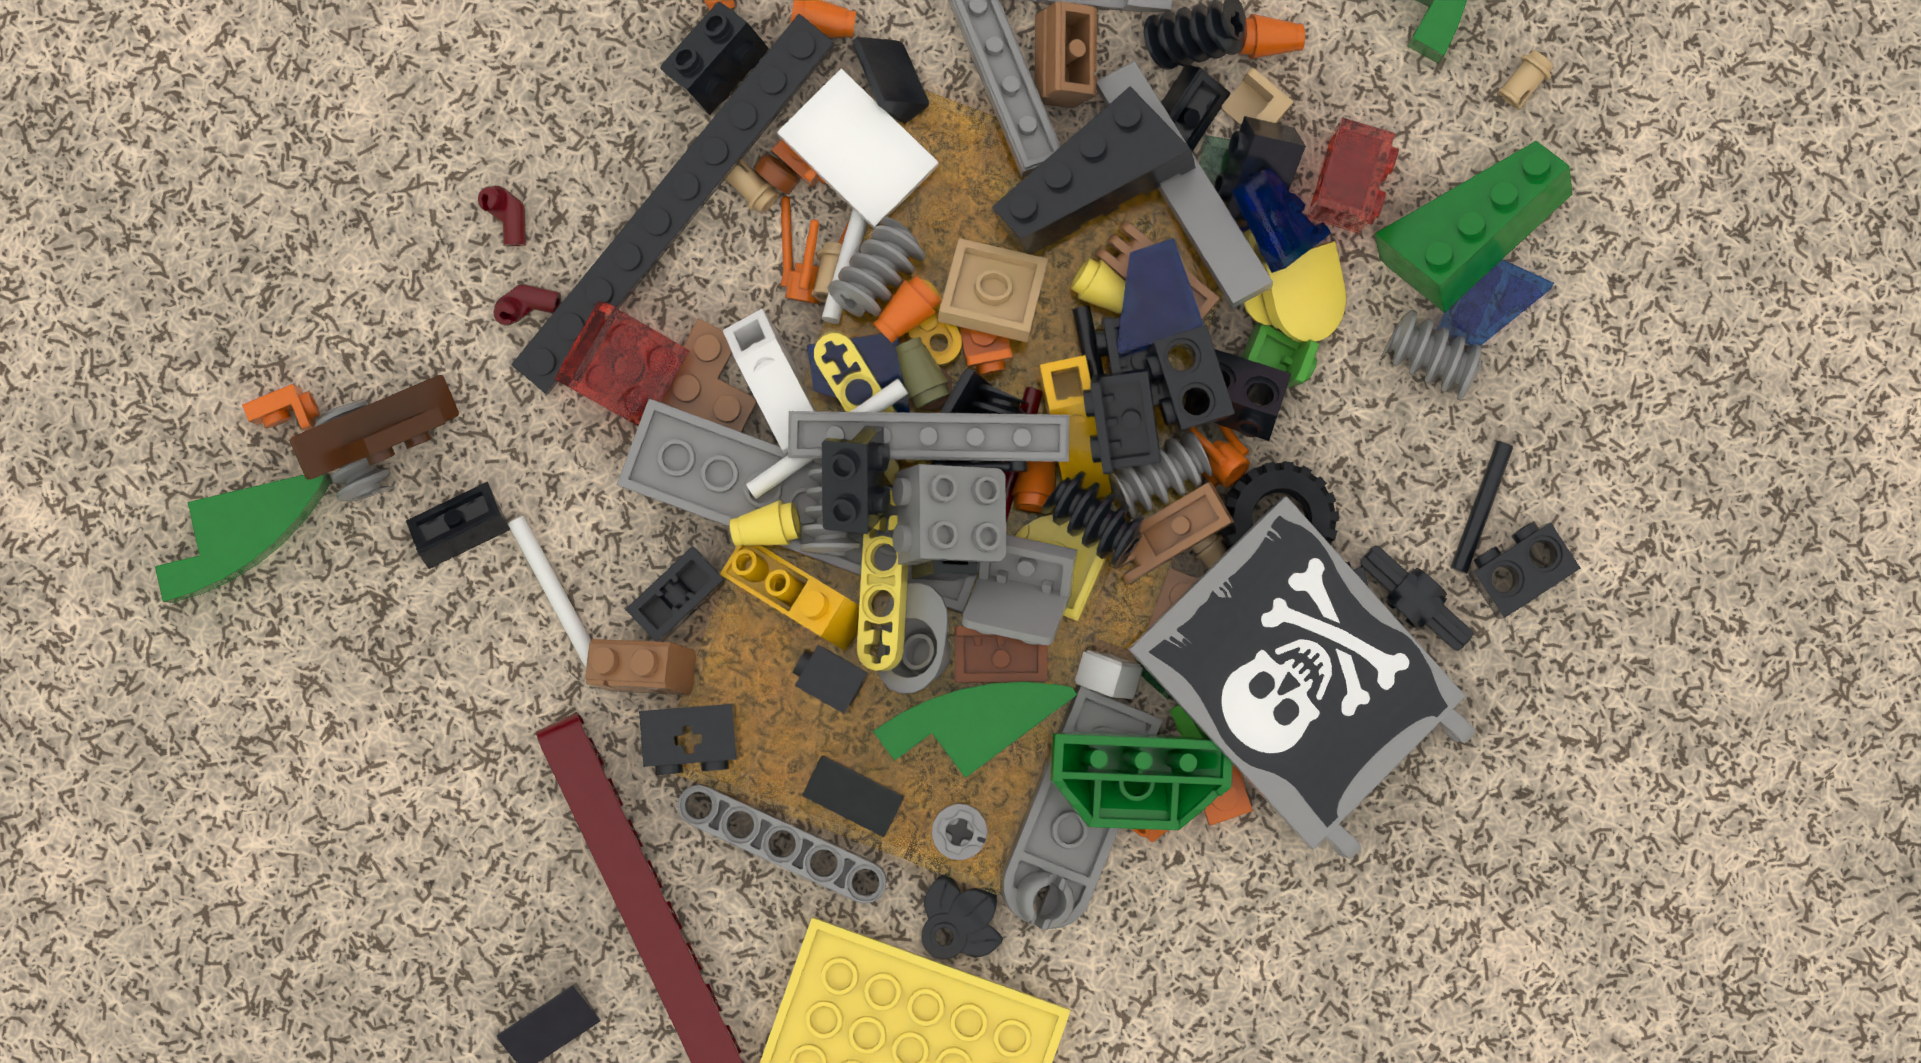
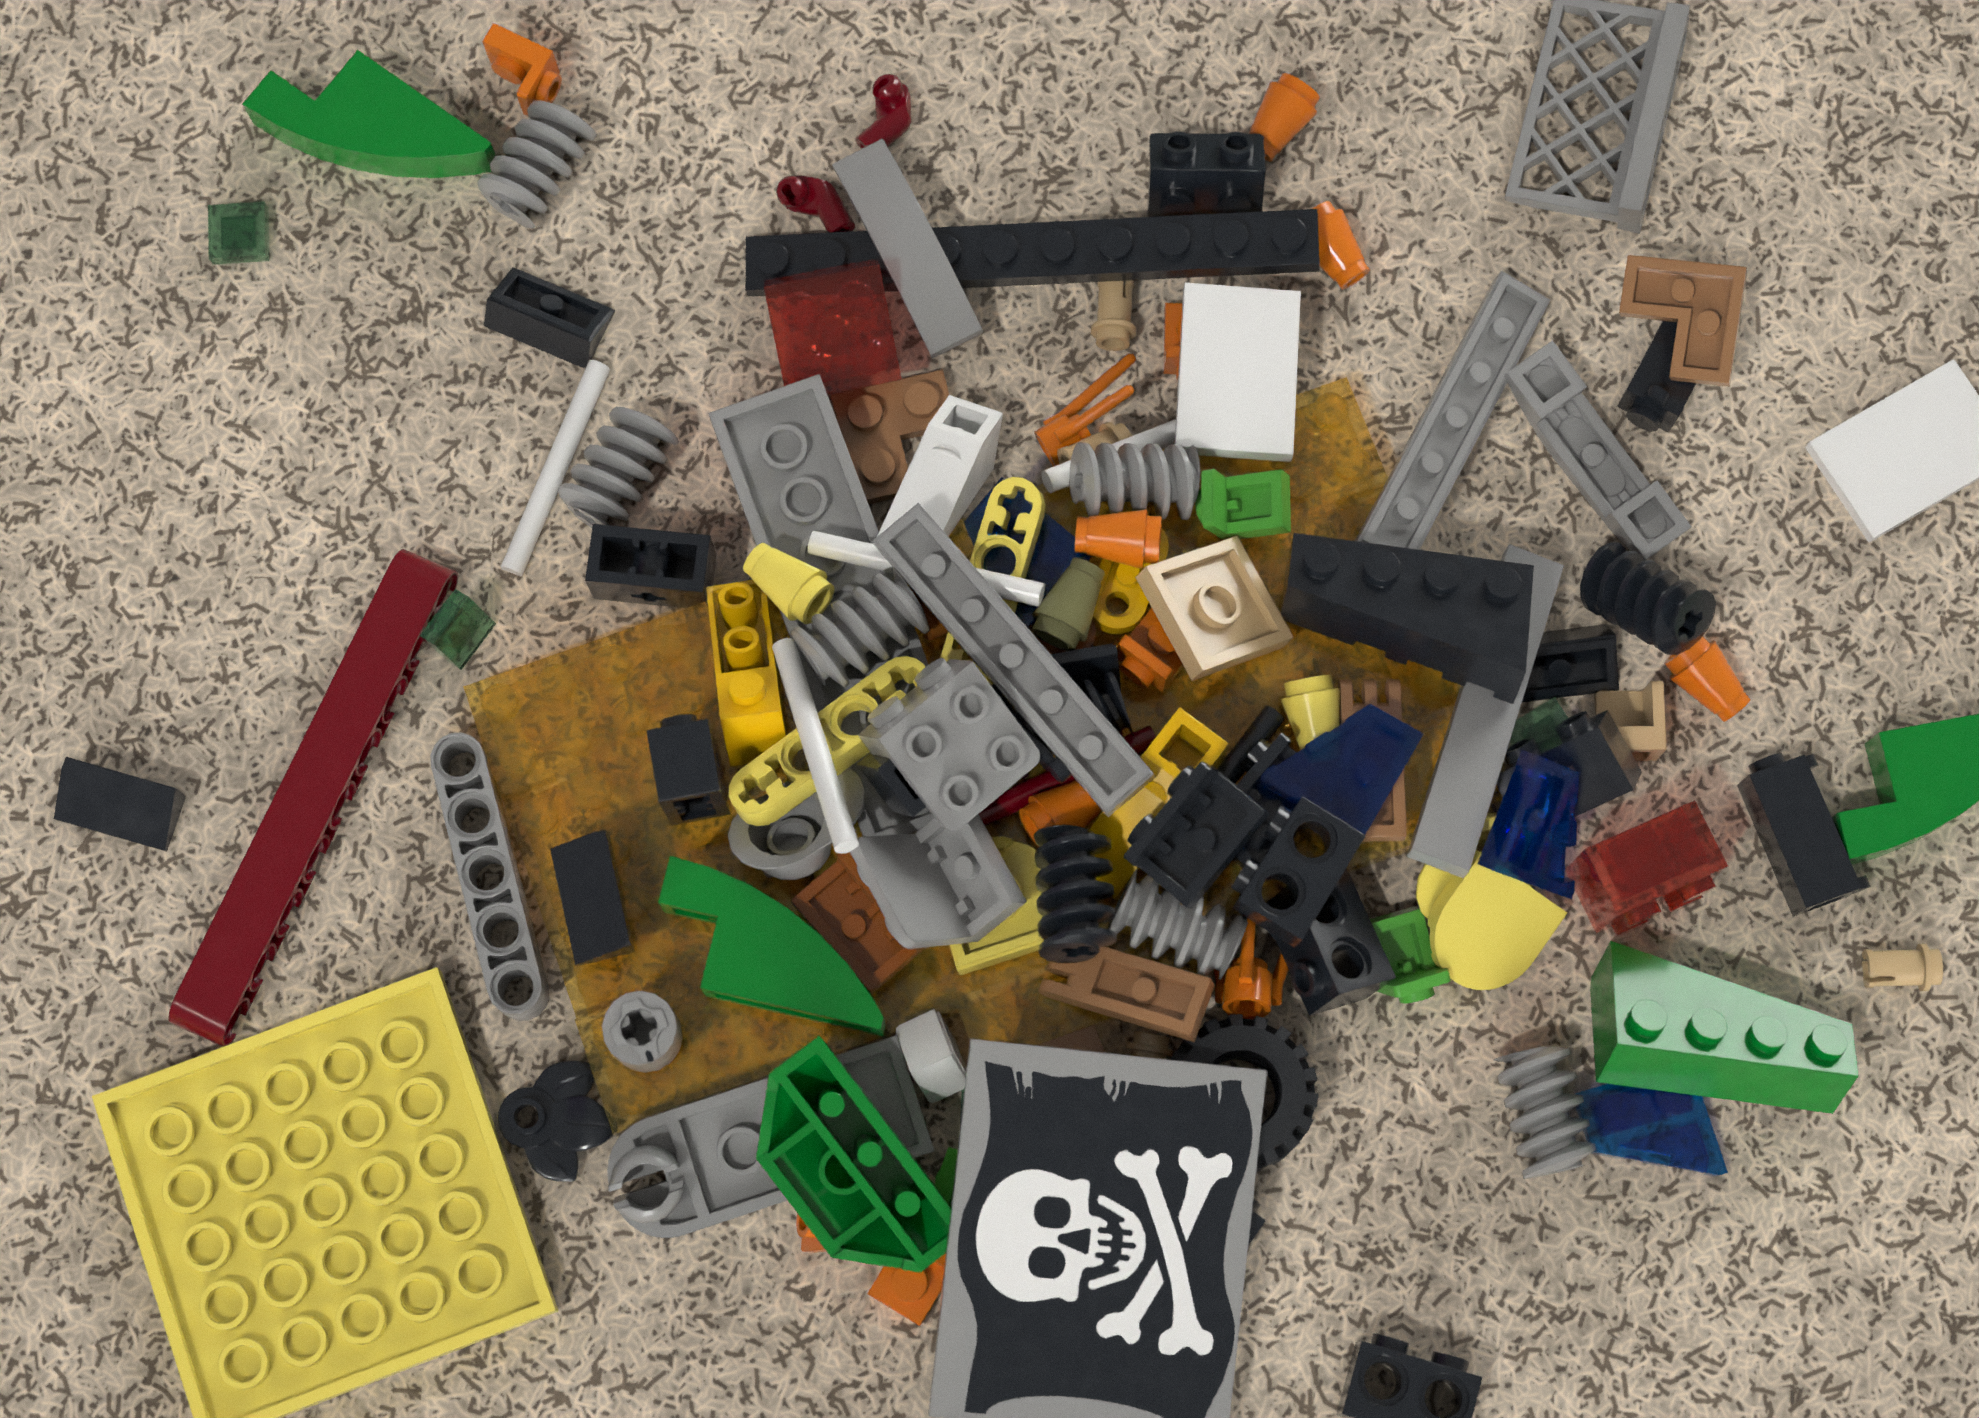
camera: 55 degrees right, 10 degrees down
(239, 669) = (238, 233): none -> clear green tile
(376, 428) = (572, 153): reddish brown bracket -> none
(594, 565) = (615, 466): none -> light grey piece
(604, 274) = (908, 248): none -> light grey slope
(614, 740) = (458, 629): none -> clear green tile
(640, 667) = (550, 589): medium nougat brick -> none
(661, 733) = (502, 656): black brick -> none
(776, 173) = (1147, 325): dark orange tile -> none
(854, 481) = (902, 617): black bracket -> none
(882, 594) = (815, 746): none -> white bar
(891, 77) = (1335, 348): black slope -> none
(944, 217) = (1244, 504): none -> bright green bracket
(1066, 54) = (1508, 494): medium nougat brick -> none
(1402, 68) = (1798, 833): none -> black brick
(1416, 597) = (1283, 1308): black axle -> none
(1481, 507) = (1435, 1297): black bar -> none

